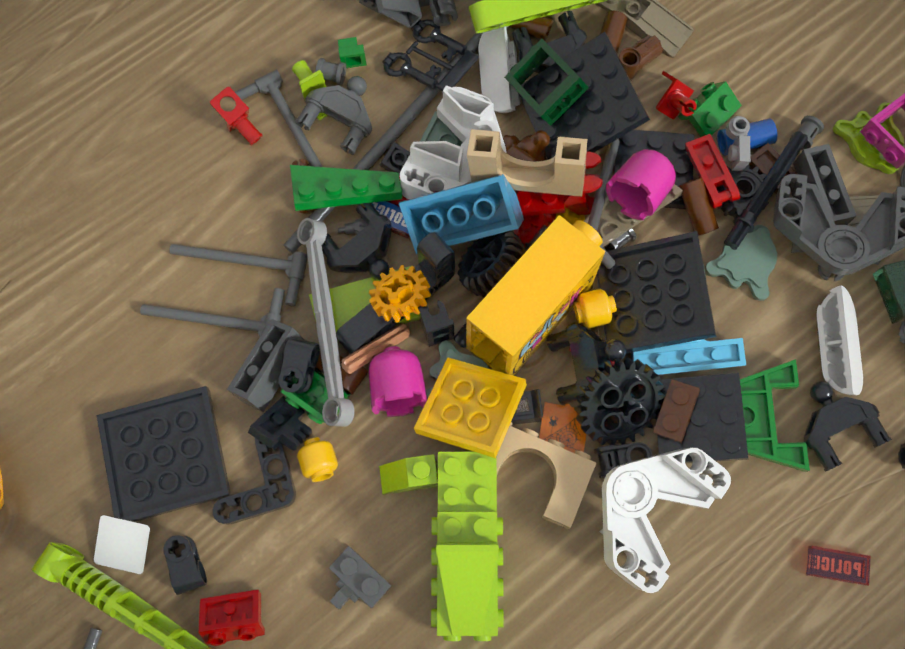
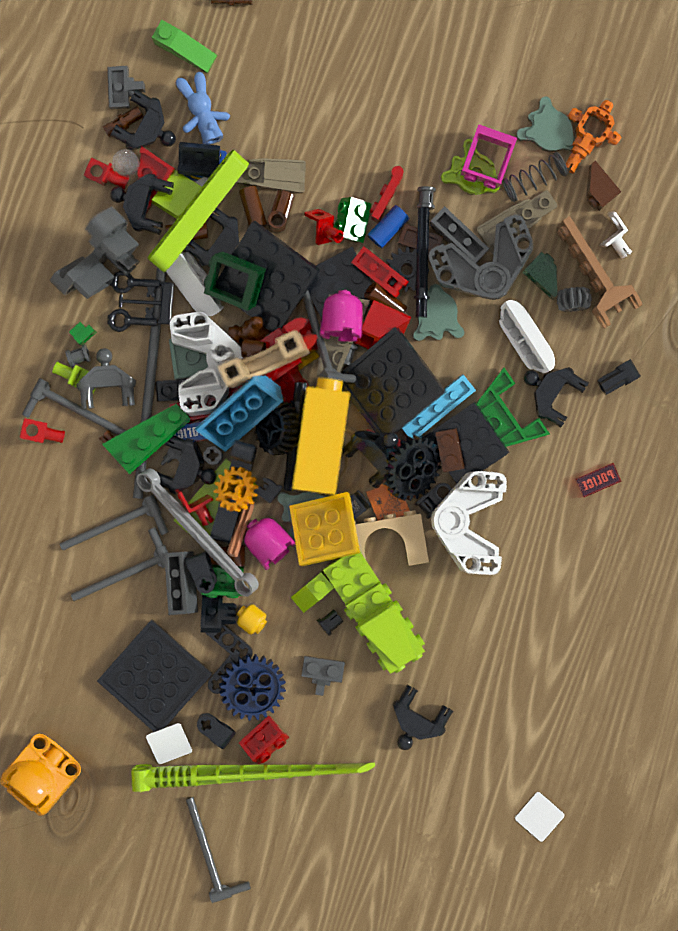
camera: 35 degrees left, 15 degrees up
(245, 562) = (255, 669): none -> dark blue gear
(346, 295) = (198, 506): none -> red bracket
(397, 246) = (208, 451): none -> dark grey bush
(405, 524) = (330, 622): none -> black bush
(594, 308) = (361, 417): yellow head -> none
(678, 218) = (379, 322): none -> red slope
(740, 150) = (390, 249): light grey plate -> none
(769, 102) = (387, 193): none -> red plate

